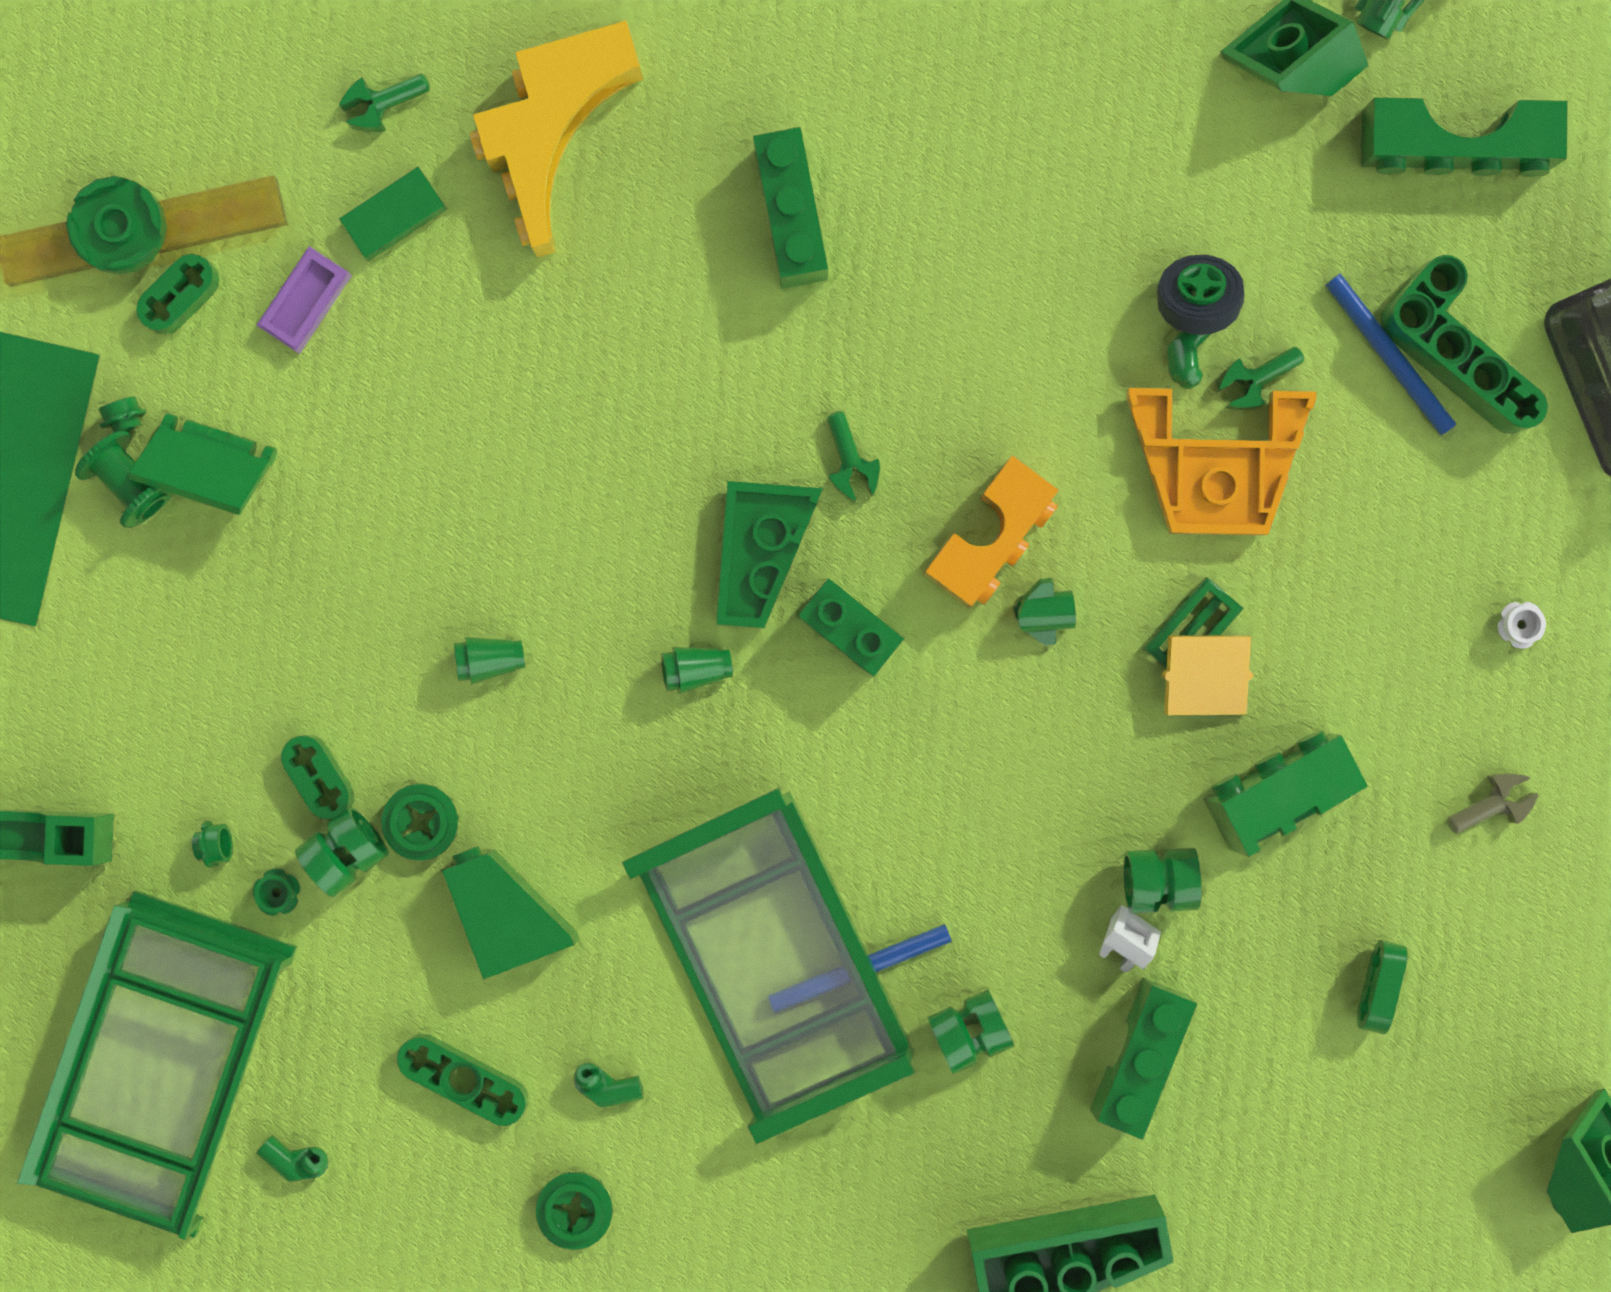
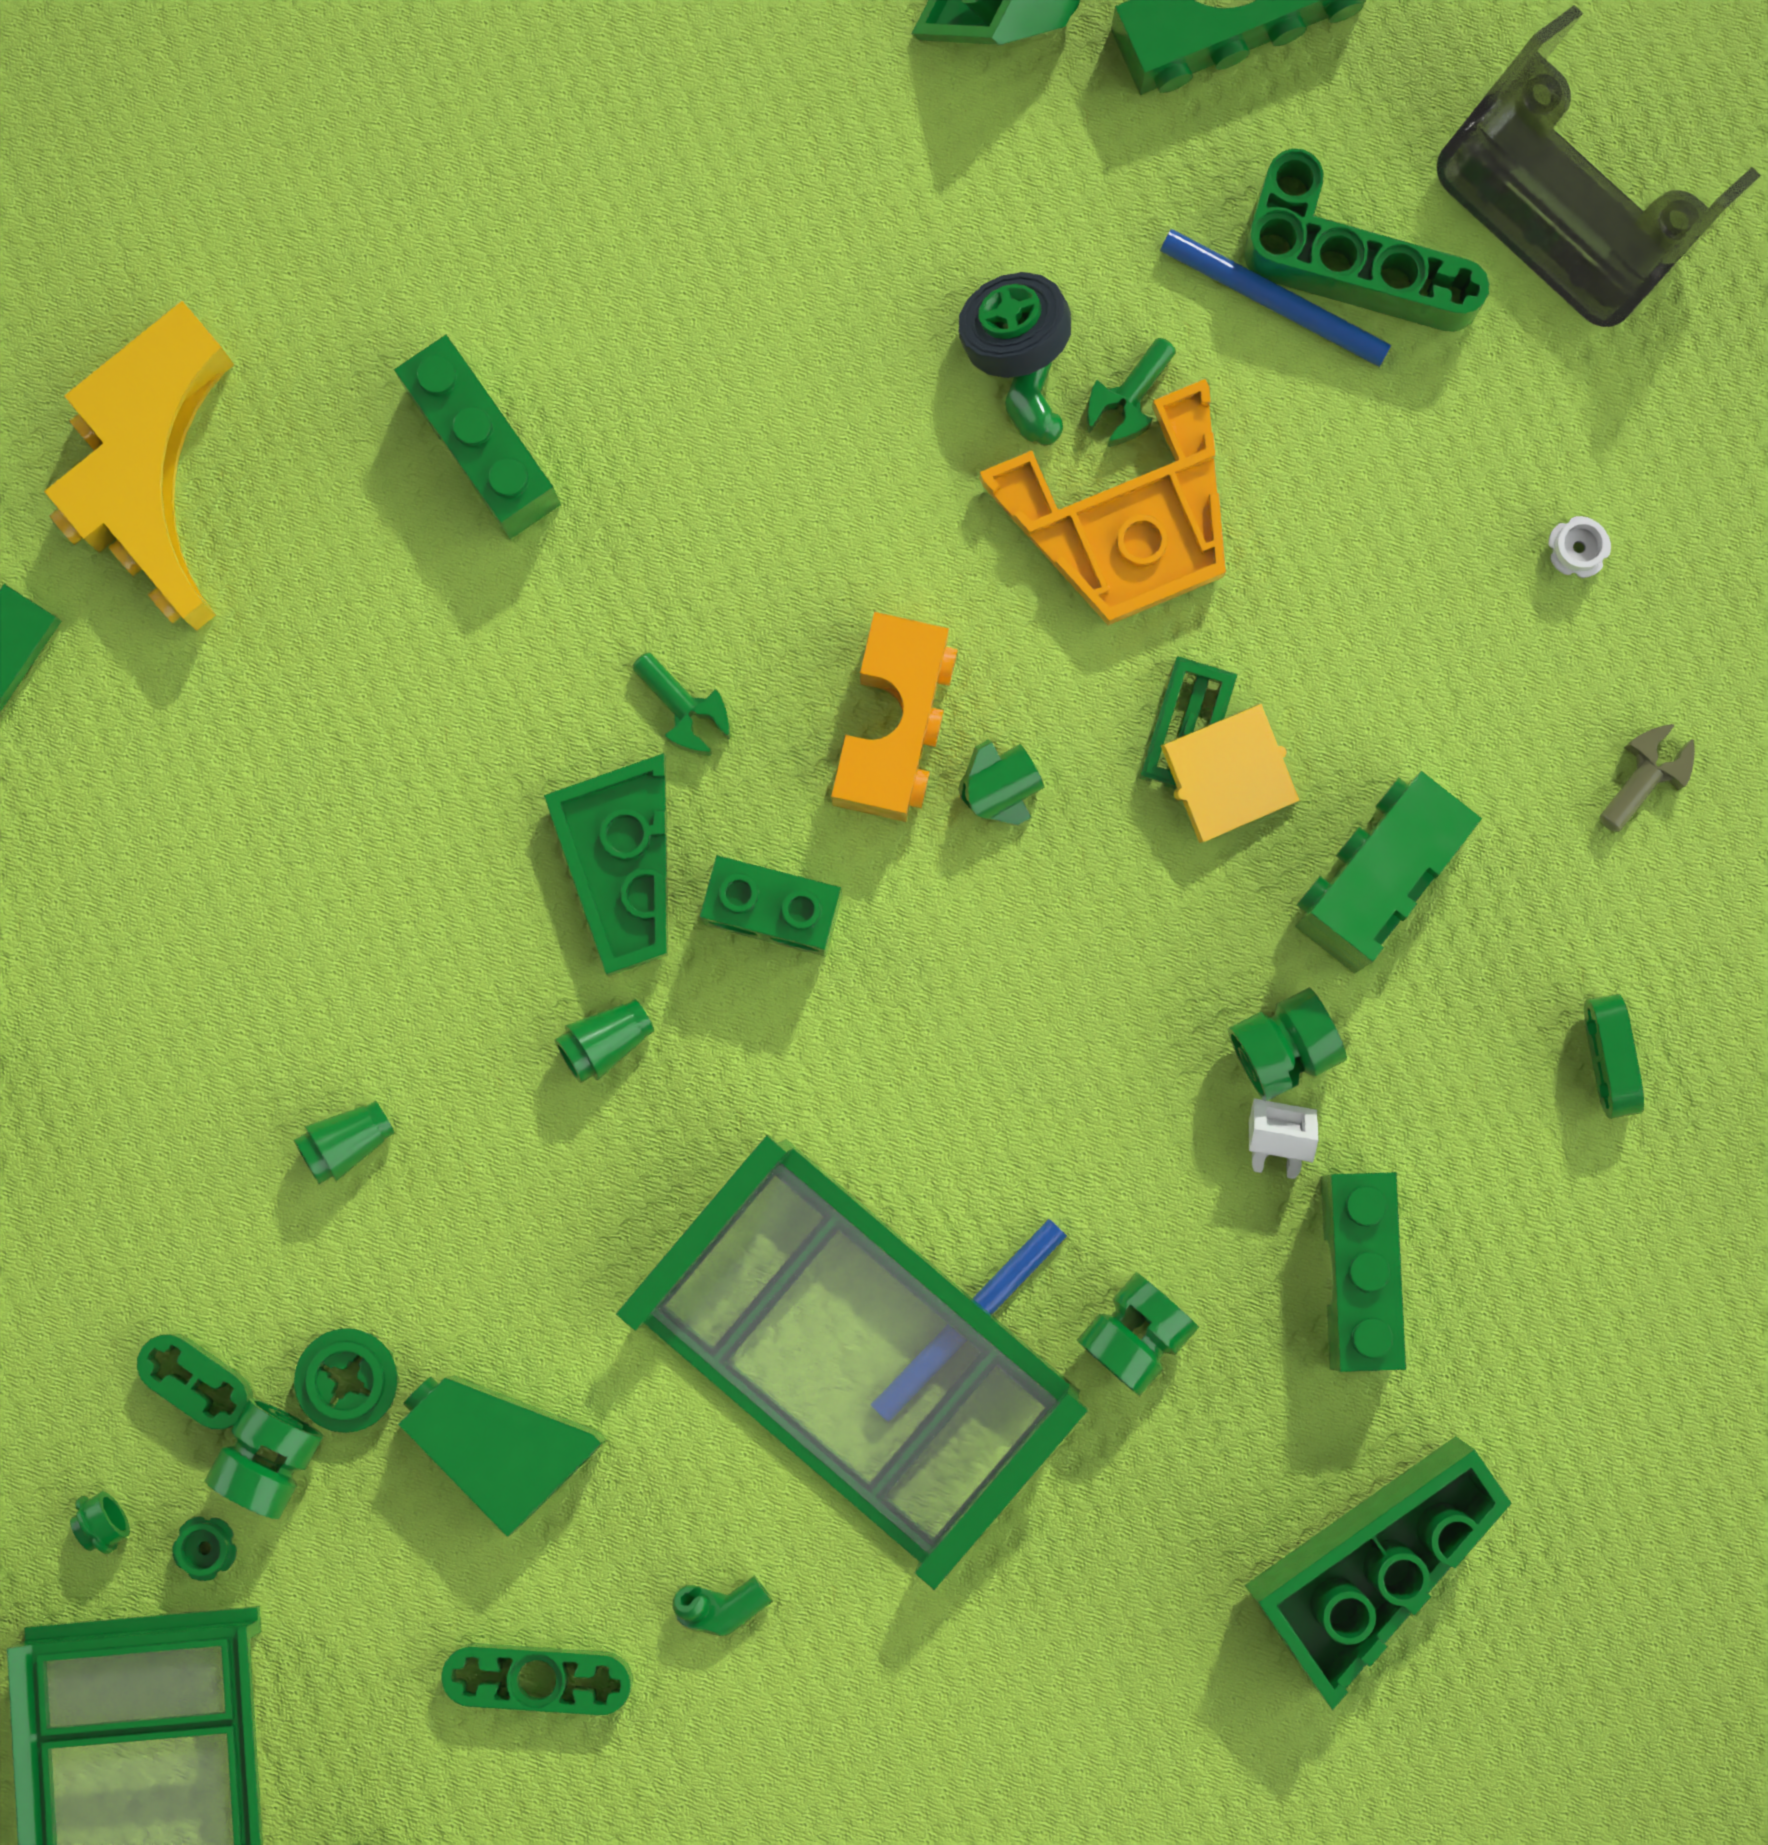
camera: 25 degrees left, 5 degrees down
(554, 1220) = (728, 1805): green gear -> none

